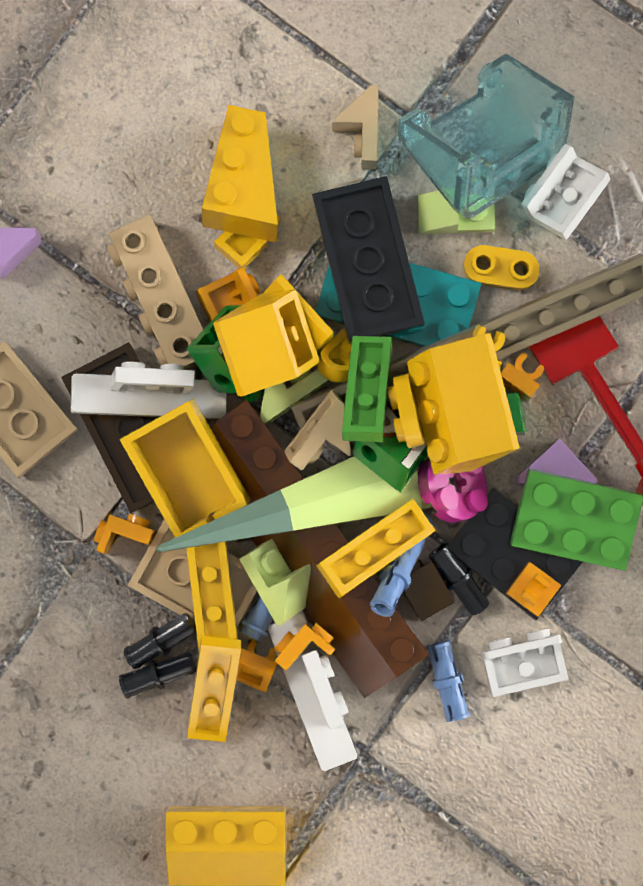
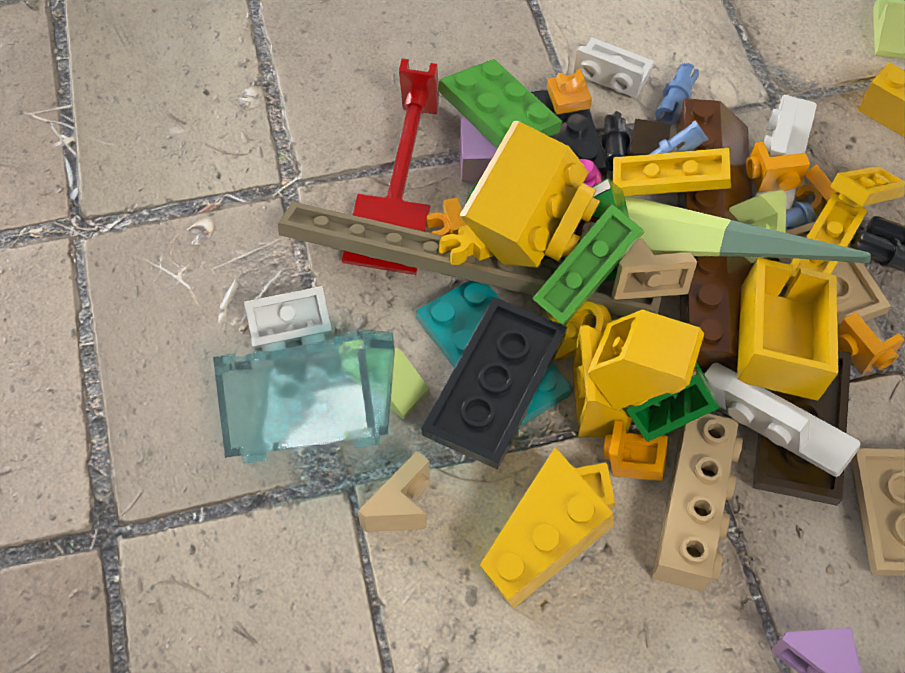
camera: 145 degrees left, 25 degrees down
(501, 269) = (387, 311): yellow plate -> none

